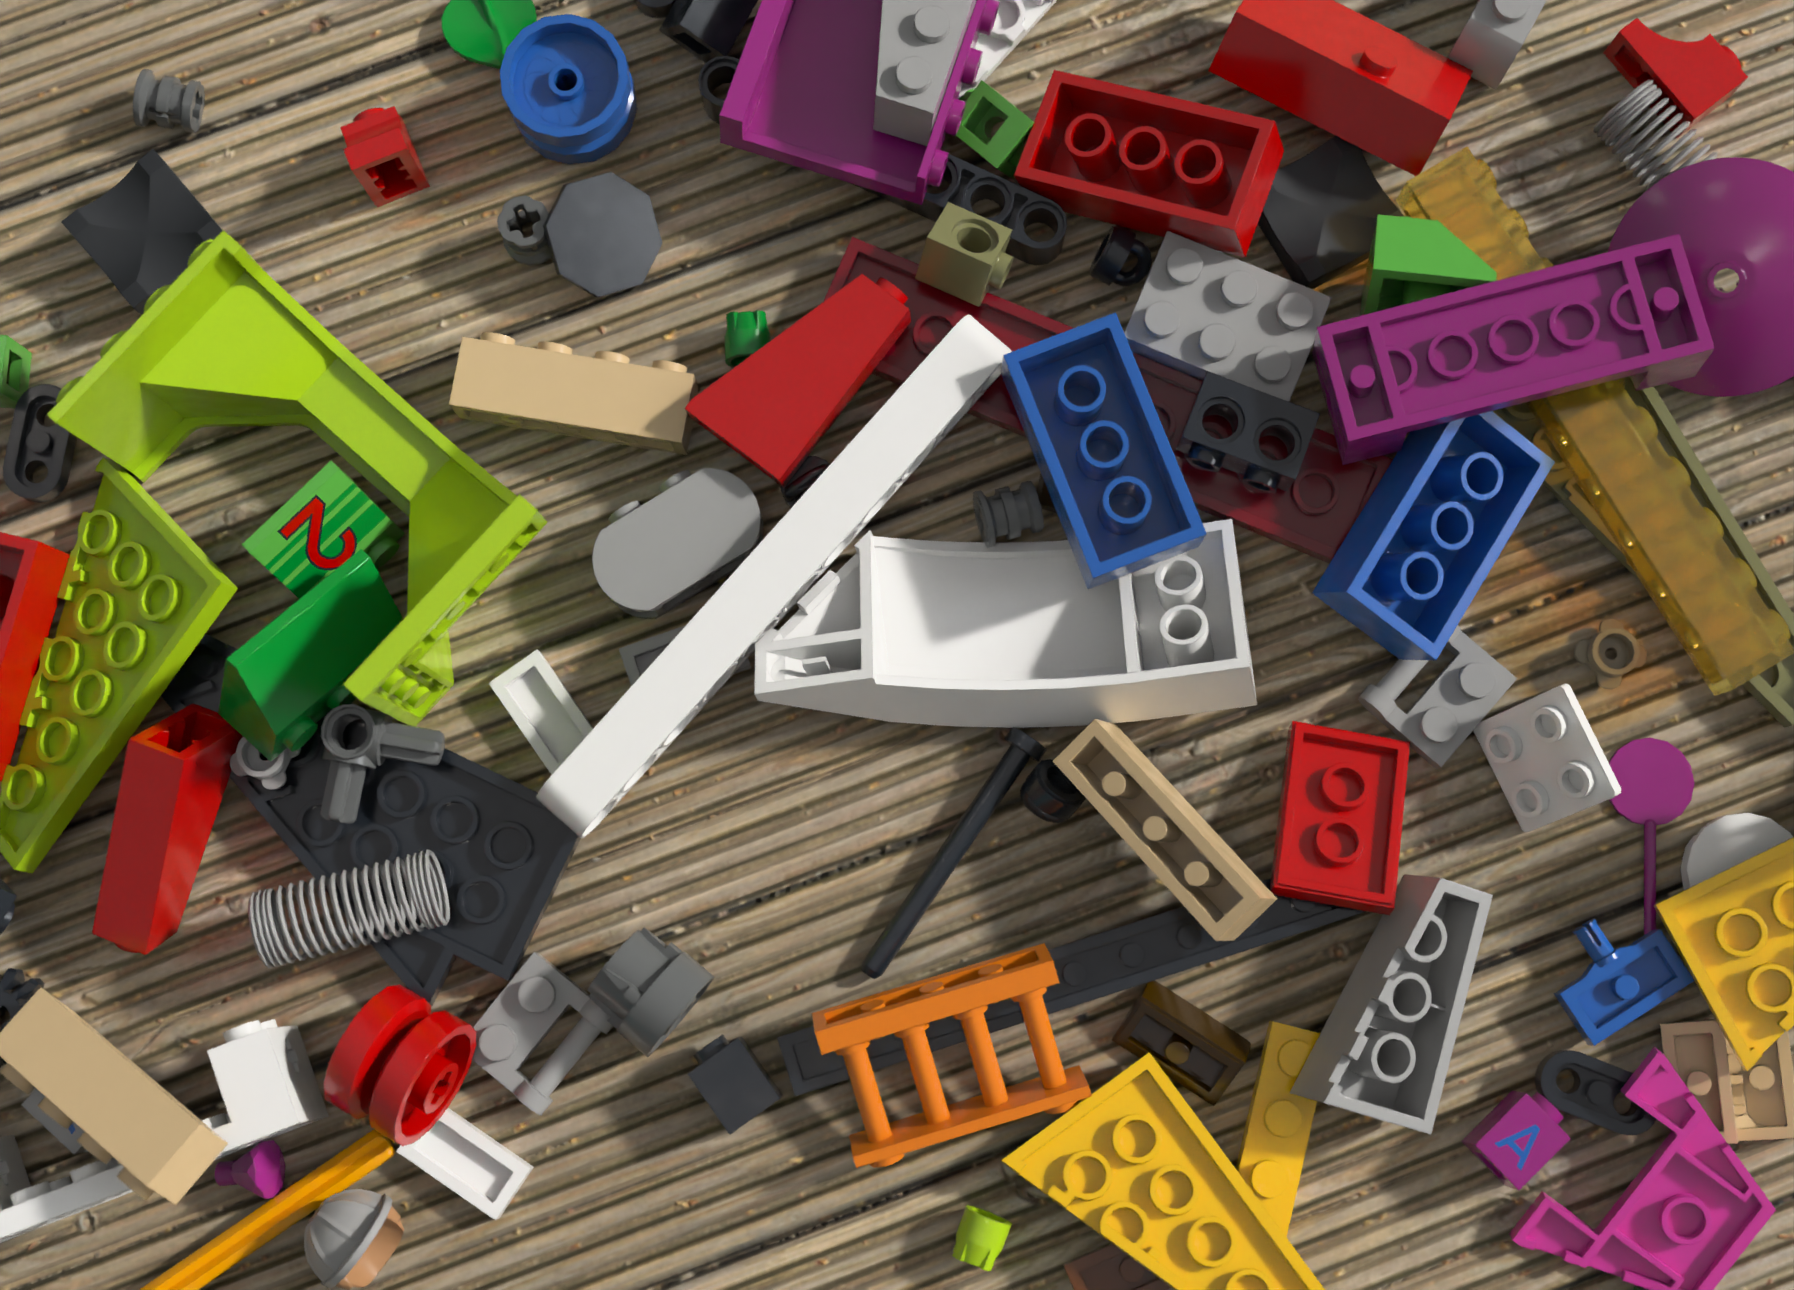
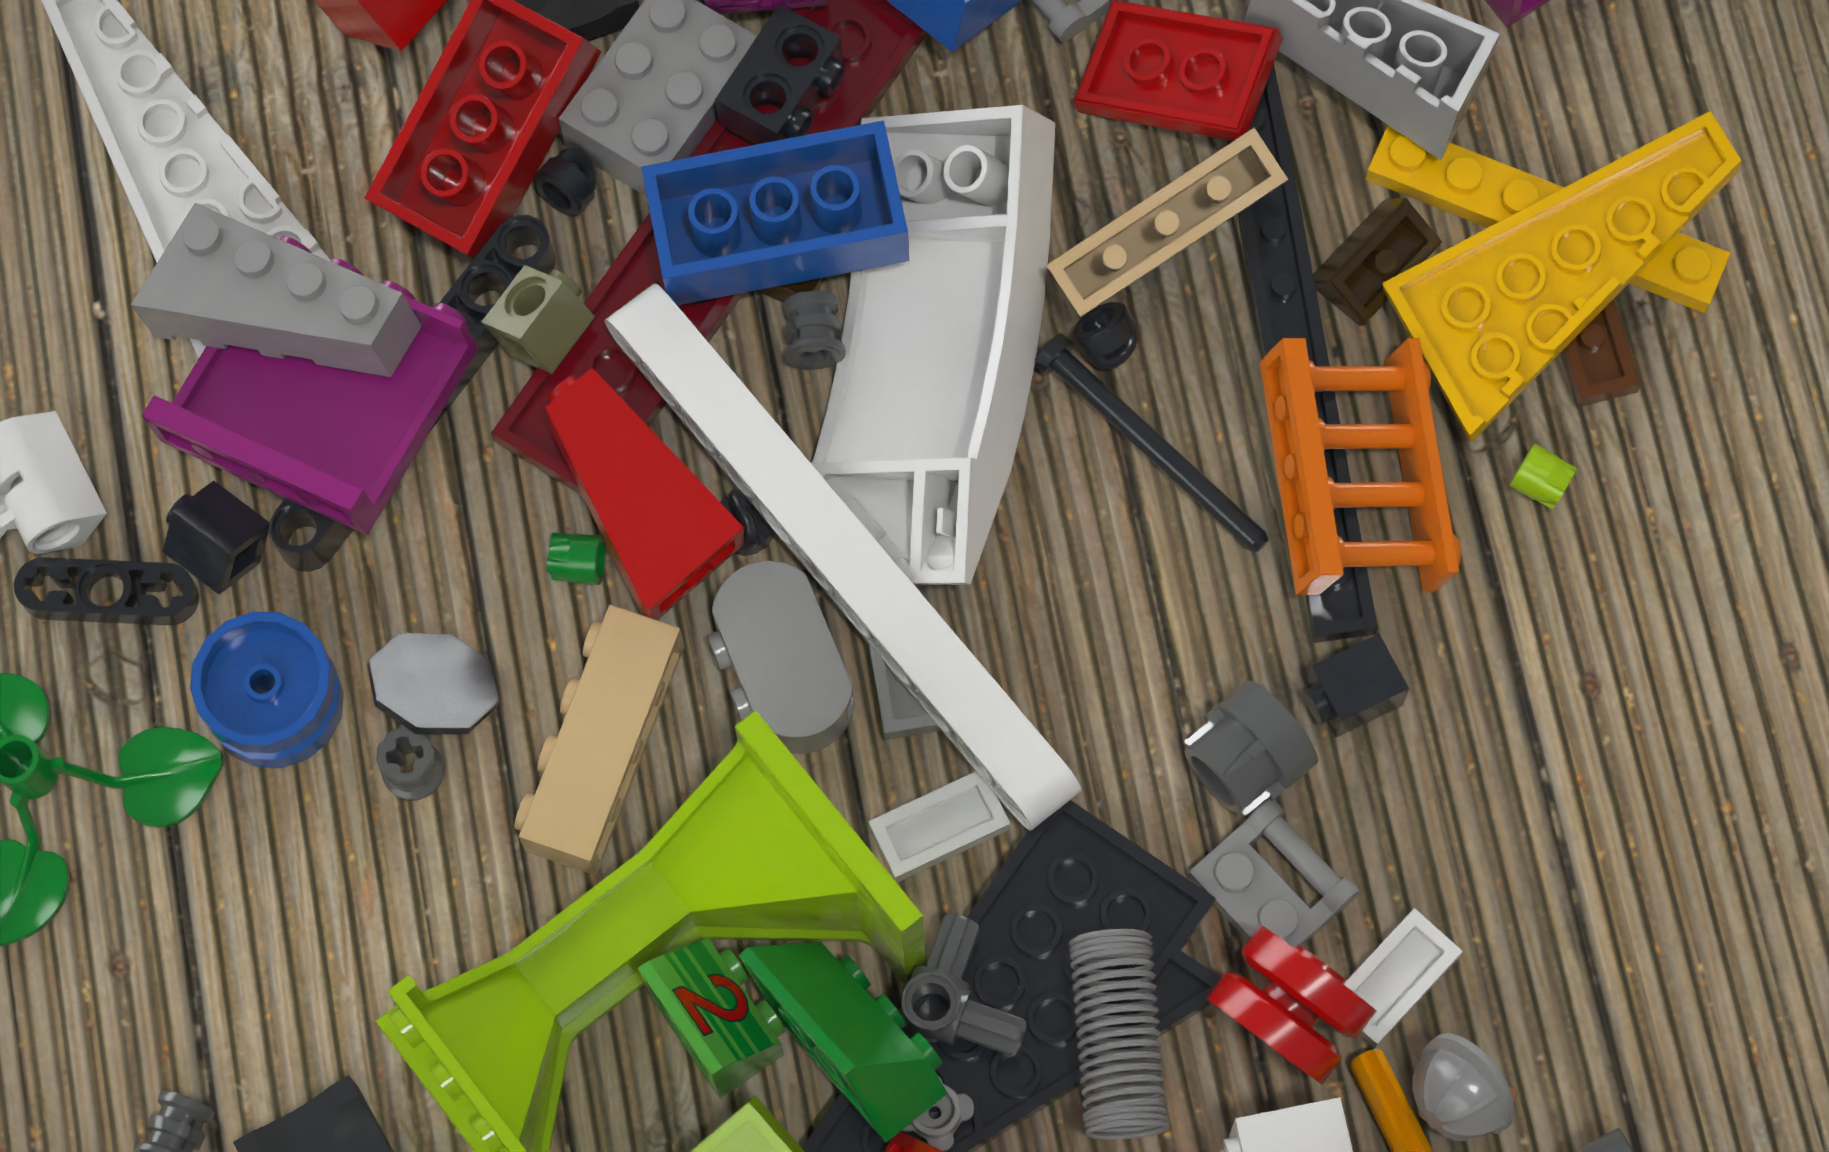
camera: 80 degrees left, 10 degrees down
(383, 155) = (291, 898): red arch -> none
(984, 110) = (420, 254): bright green brick -> none

